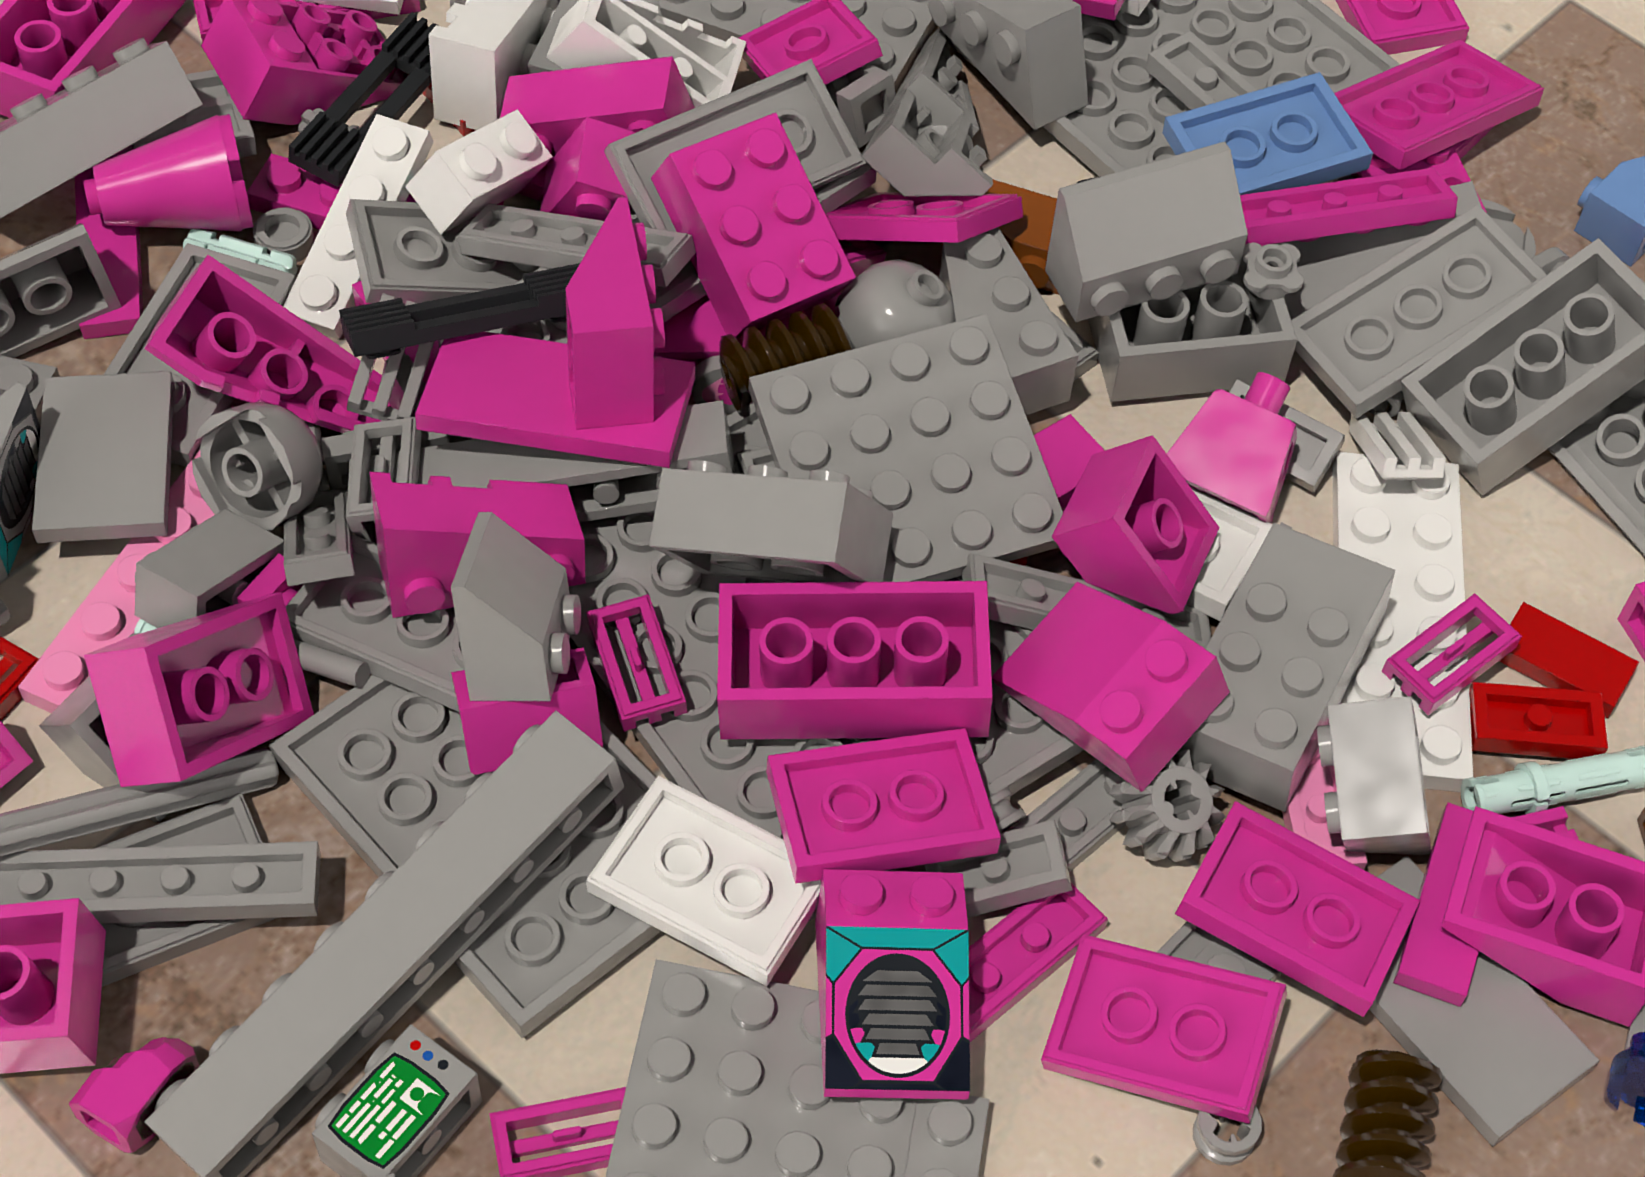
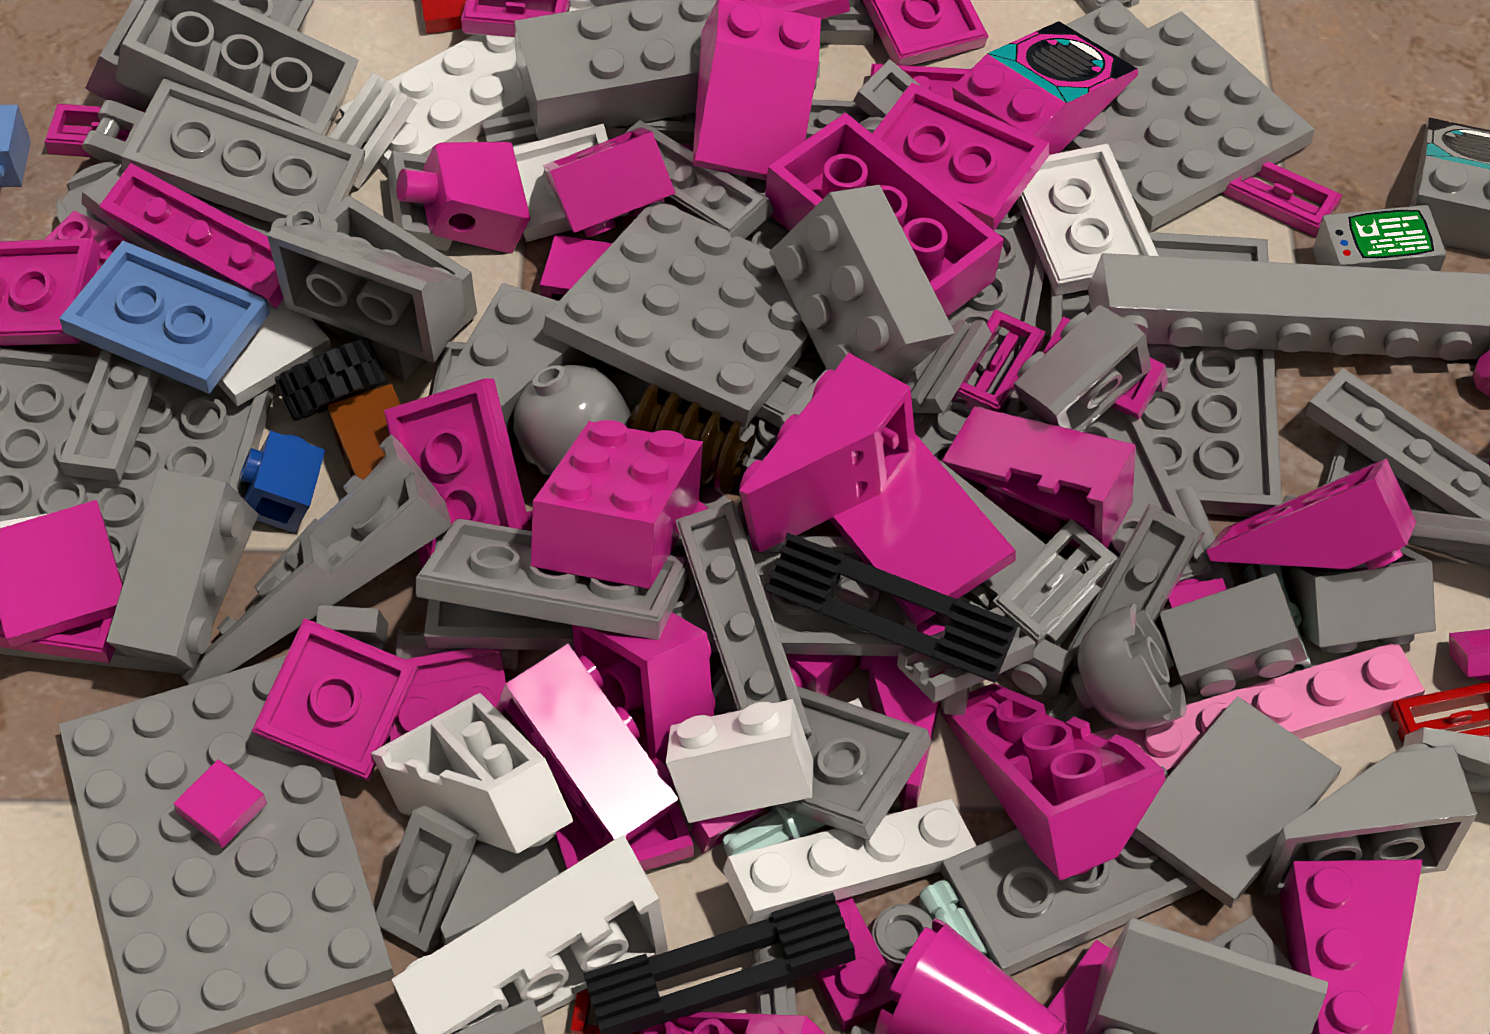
camera: 130 degrees left, 0 degrees up
(678, 599) = (944, 370): none -> light grey tile
(1049, 152) = (282, 479): none -> blue brick

